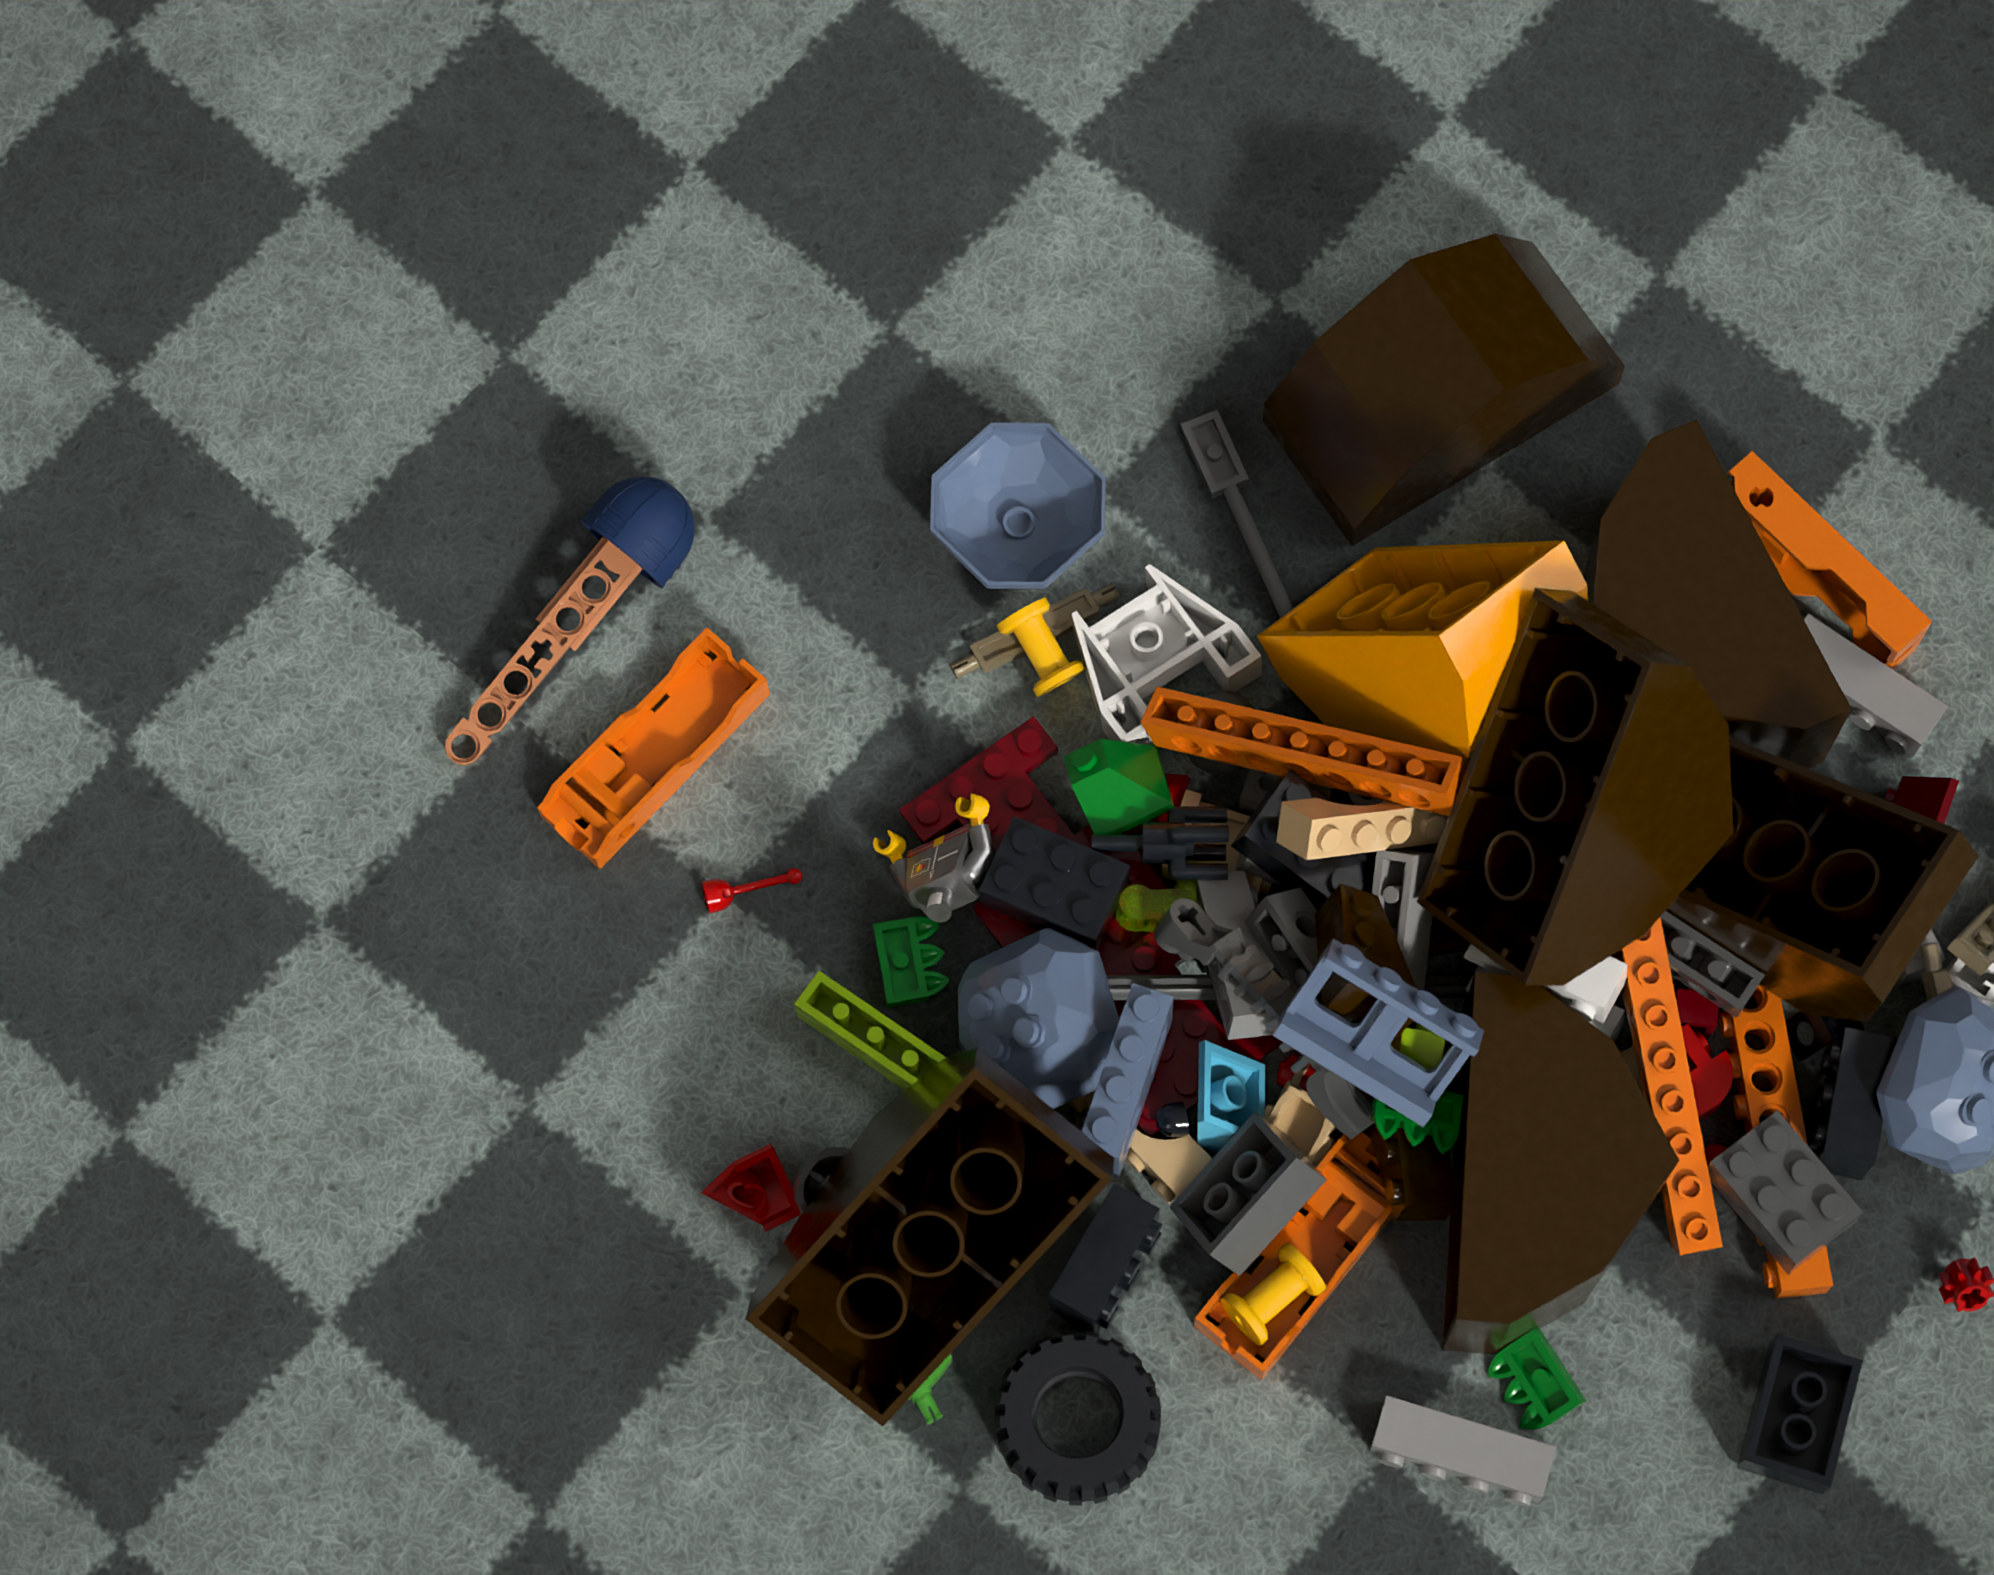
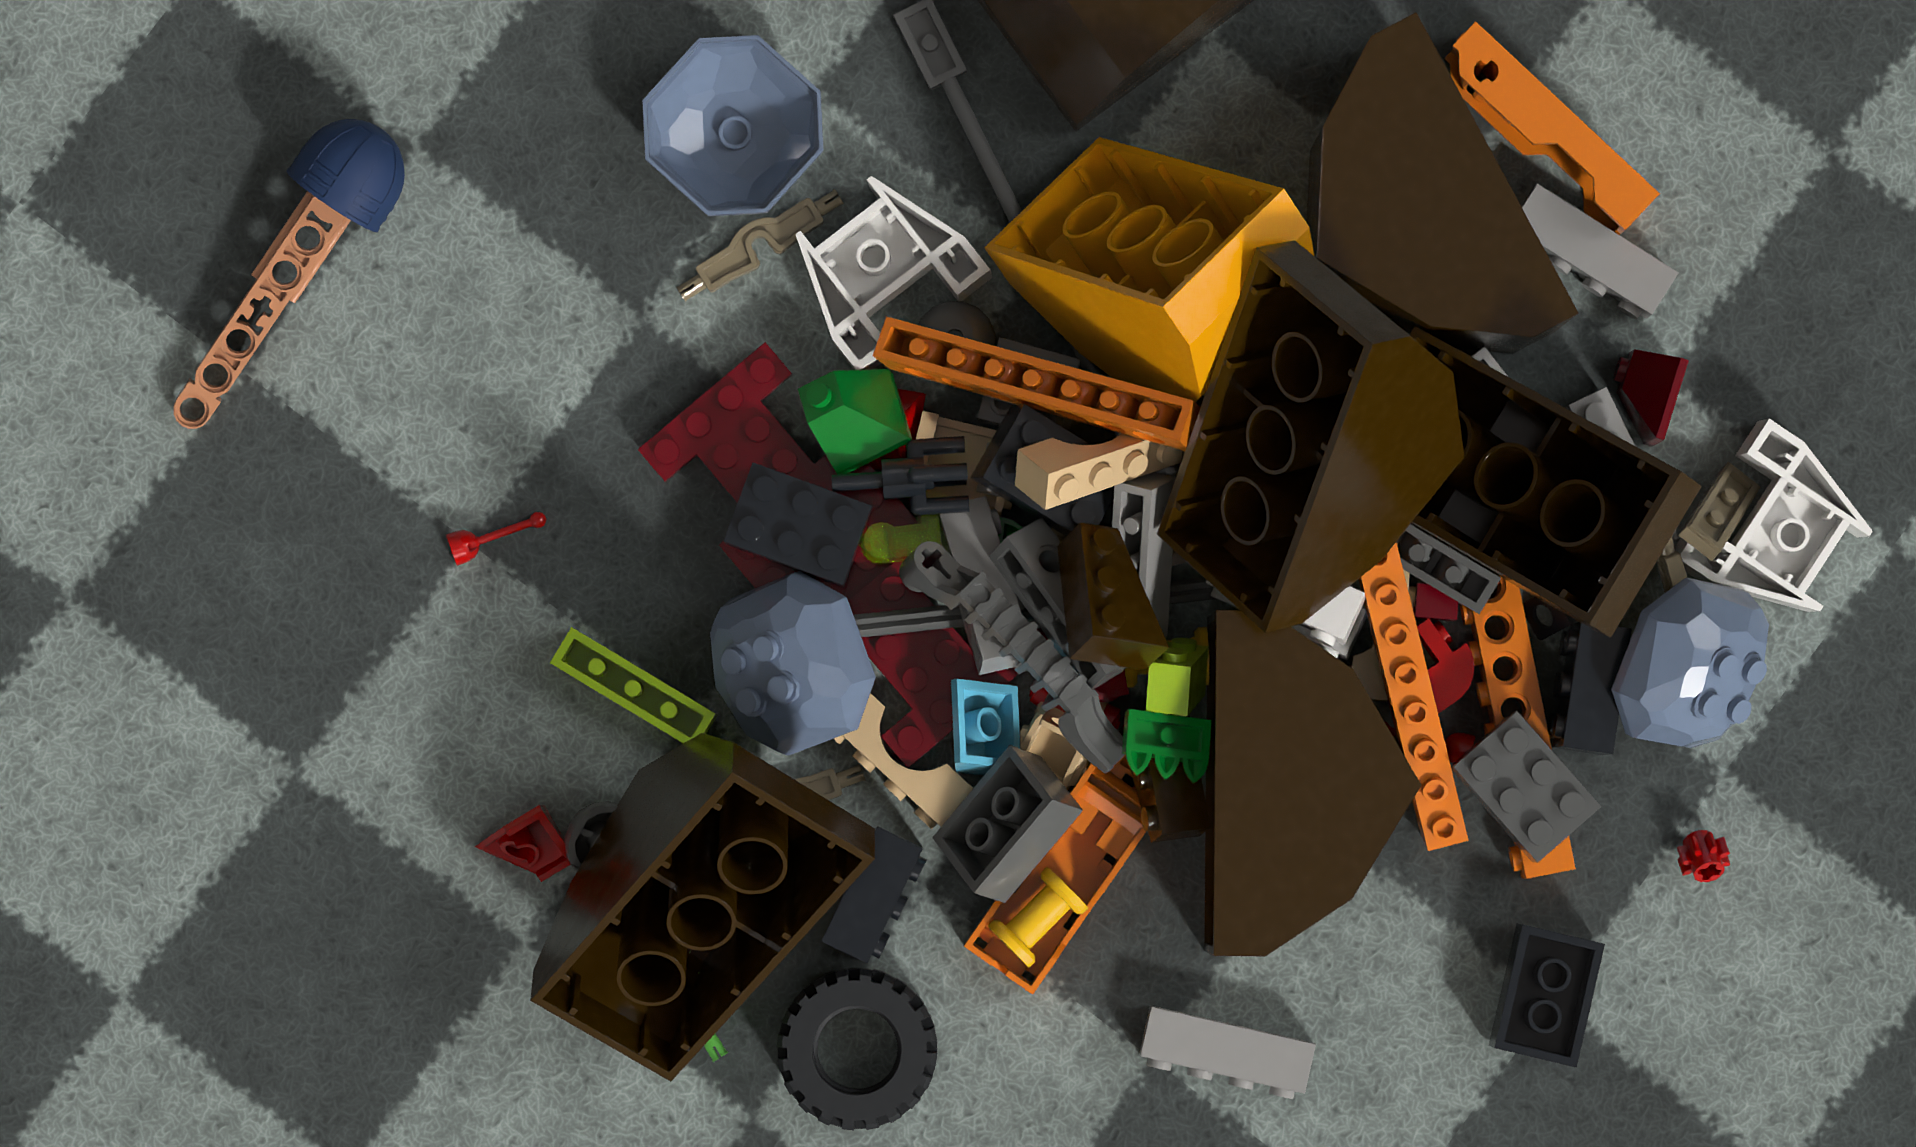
camera: 10 degrees left, 15 degrees up
(655, 748) = (386, 400): orange piece -> none
(905, 959) = (656, 601): green plate -> none
(947, 869) = (689, 513): flat silver torso -> none
(1041, 647) = (767, 269): yellow piece -> none
(1129, 1072) = (881, 726): sand blue window -> none
(1173, 1120) = (930, 753): black hinge -> none
(1364, 1049) = (1111, 695): sand blue window -> none
(1537, 1379) = (1297, 976): green plate -> none

